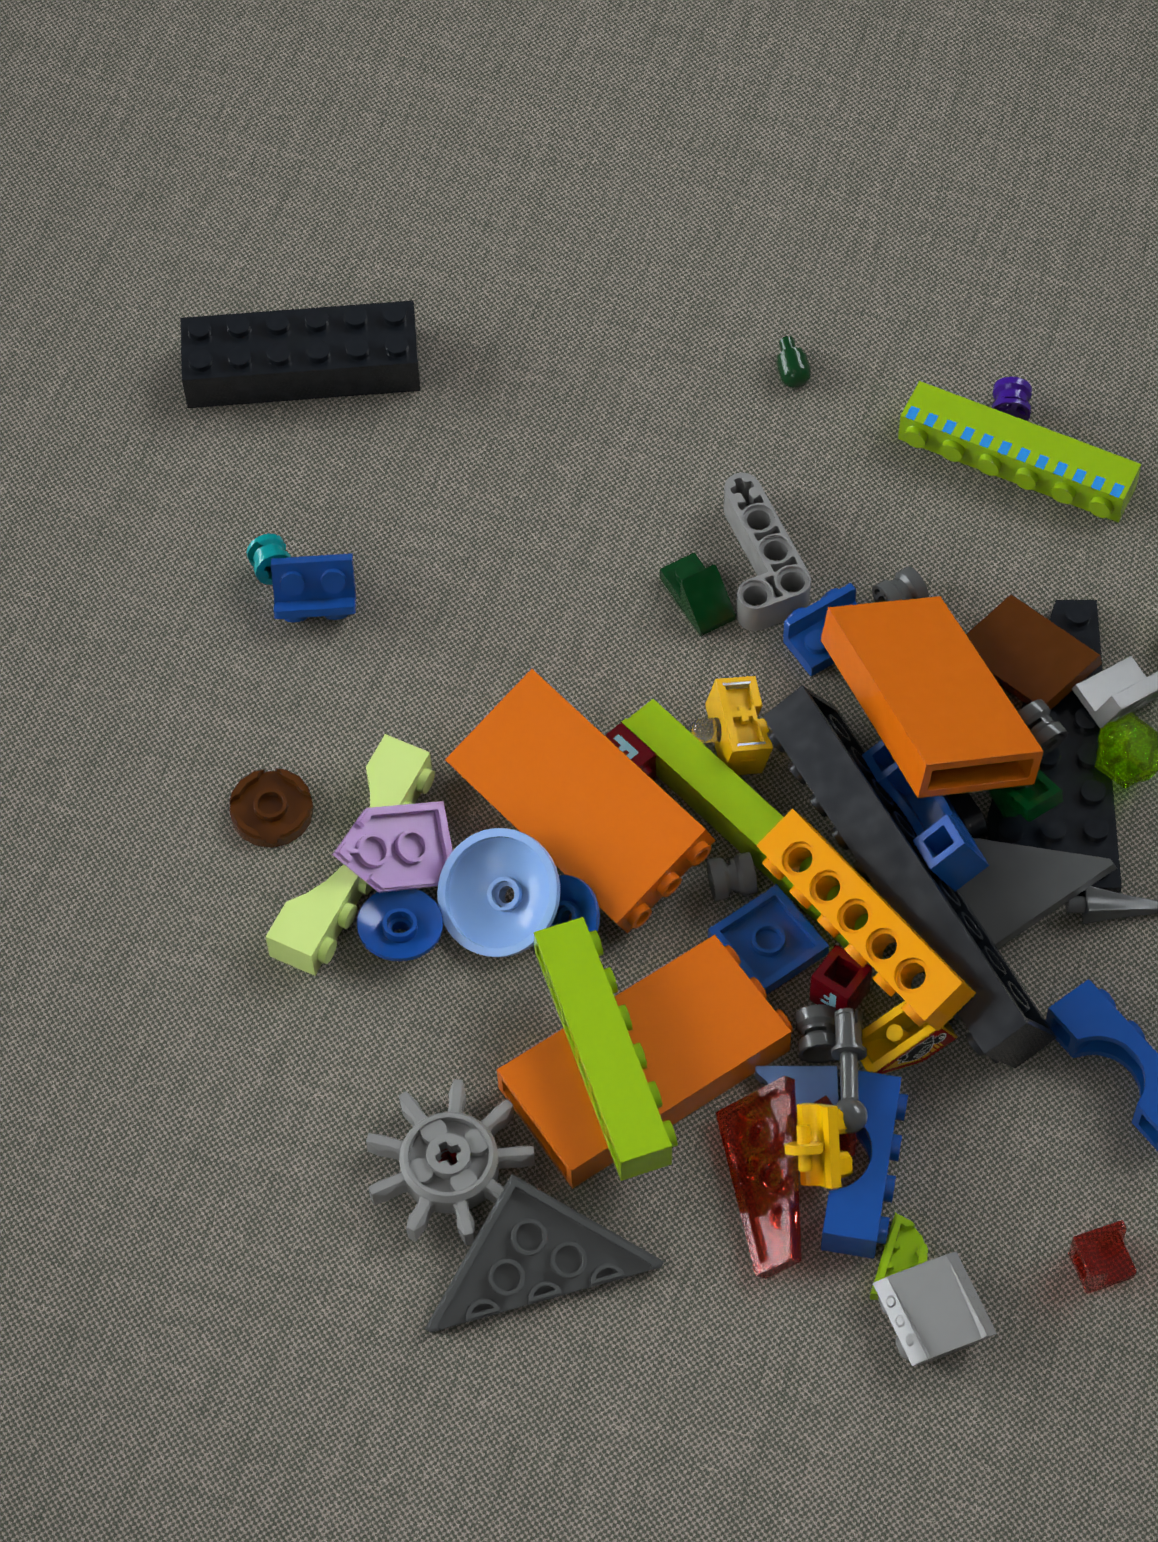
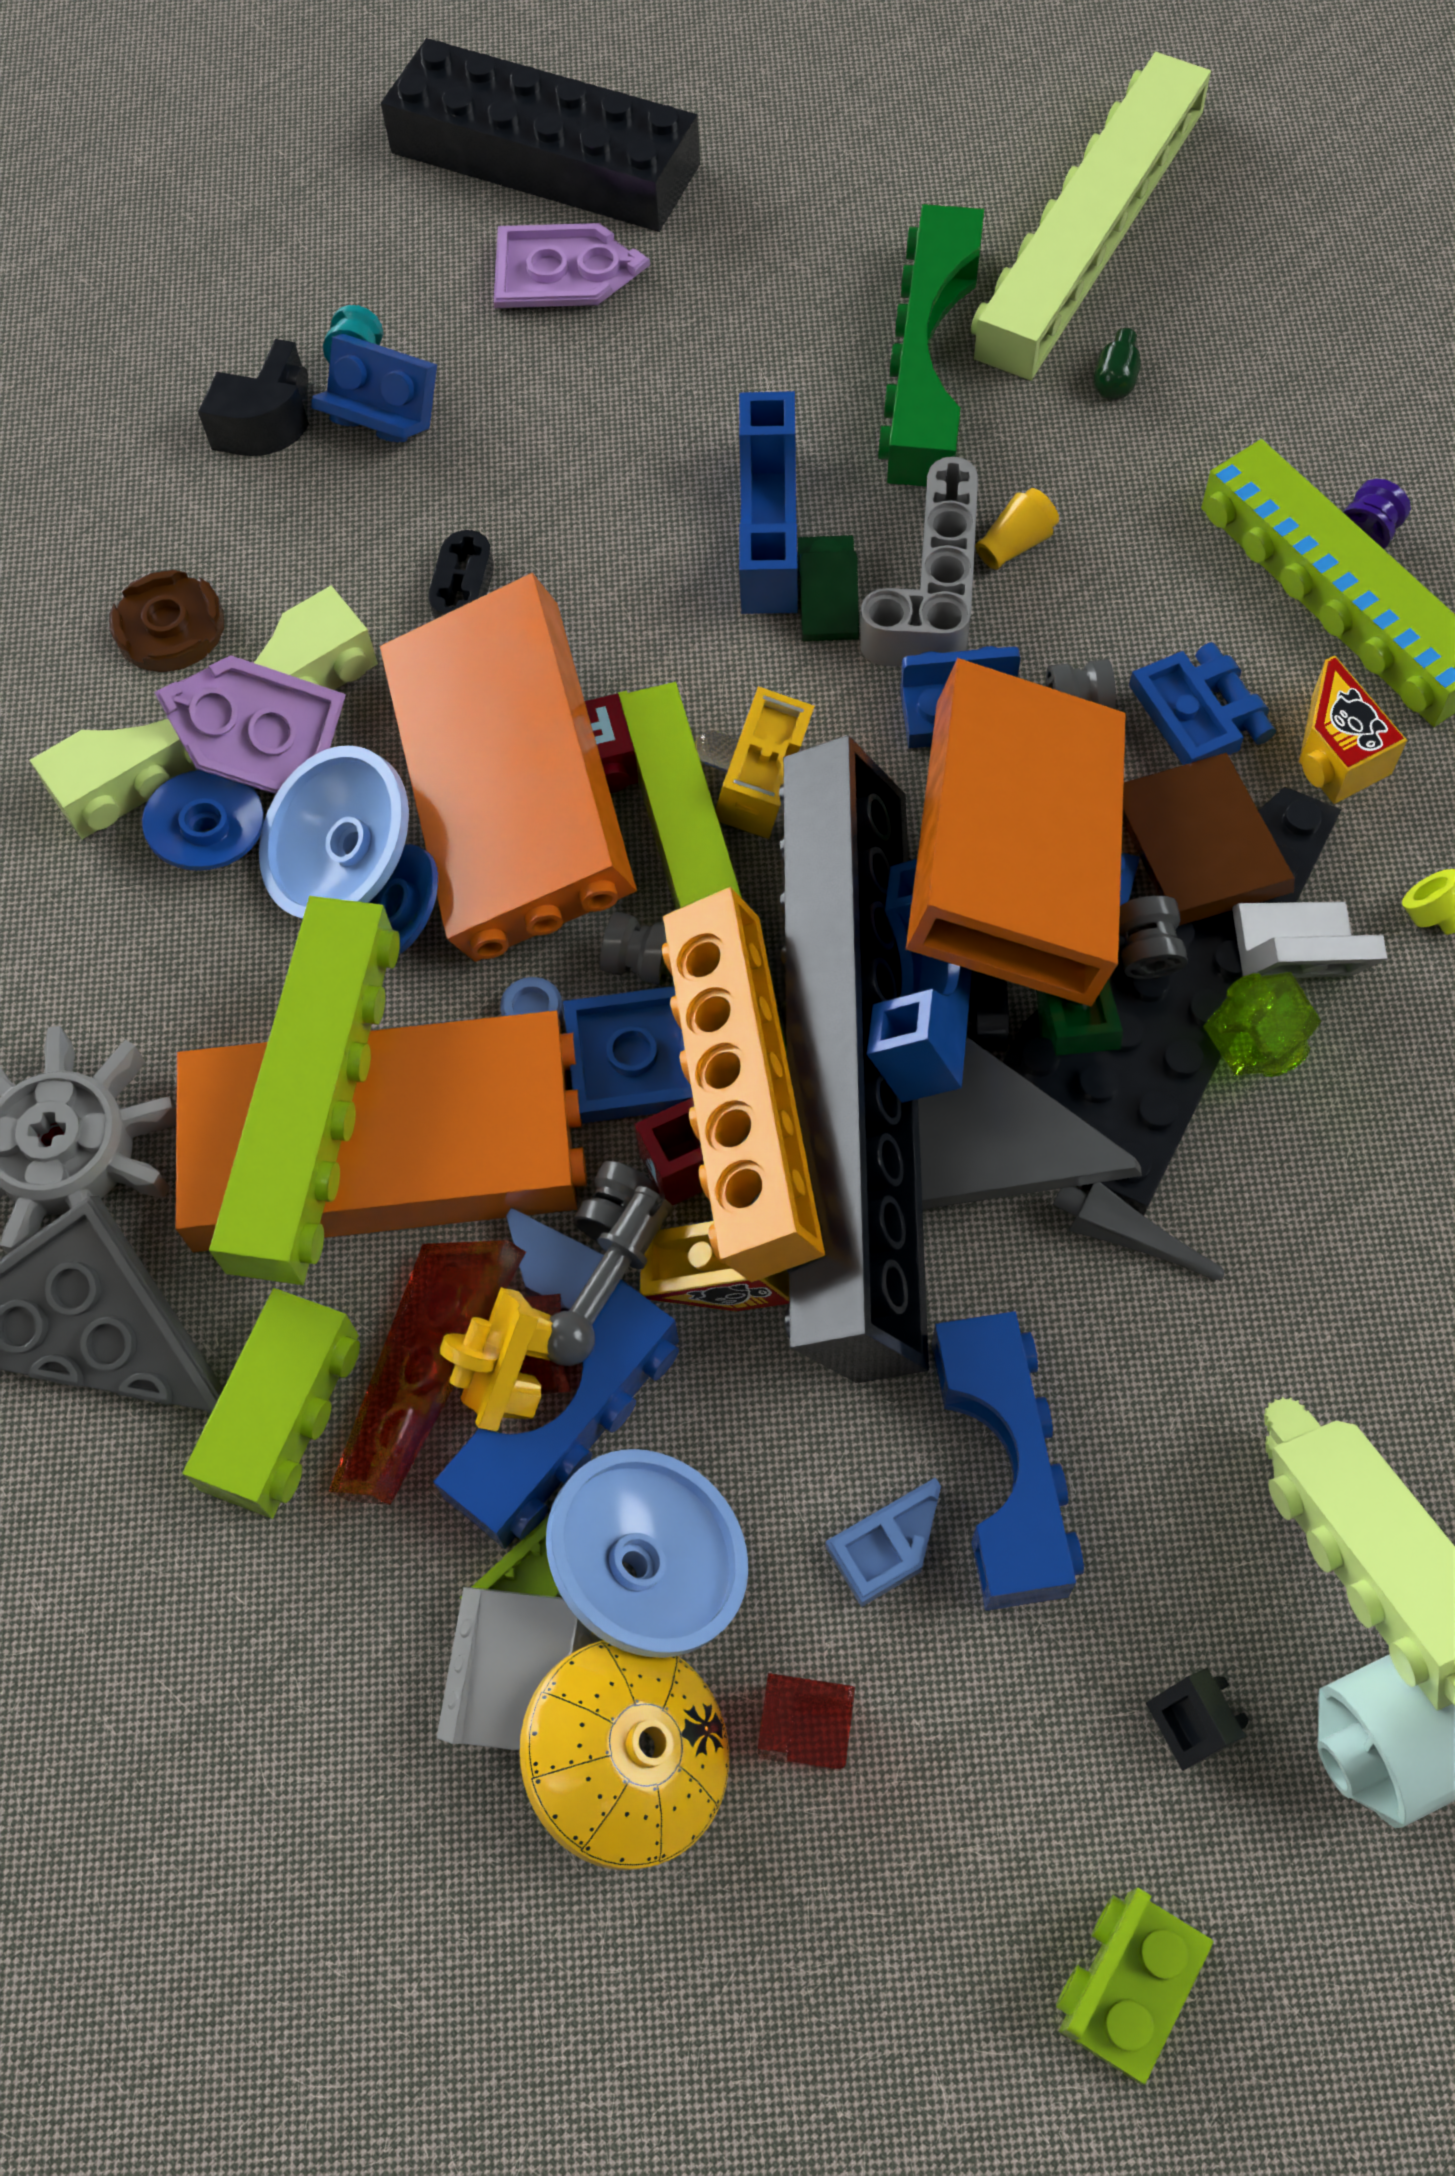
camera: 30 degrees right, 5 degrees up
(238, 639) = (261, 412): none -> black brick
(371, 444) = (561, 265): none -> lavender tile
(447, 695) = (449, 578): none -> black beam
(649, 585) = (767, 503): none -> blue arch
(681, 939) = (531, 996): none -> medium blue tile
(693, 1242) = (273, 1404): none -> lime brick
(694, 456) = (922, 411): none -> green arch
(714, 264) = (1089, 216): none -> yellowish green brick
(797, 501) = (1020, 526): none -> yellow cone
(966, 1209) = (673, 1534): none -> light blue dish
(971, 577) = (1188, 712): none -> blue plate
(1020, 1319) = (587, 1763): none -> yellow dish
(1073, 551) = (1347, 736): none -> slope
(1087, 1146) = (887, 1544): none -> medium blue tile

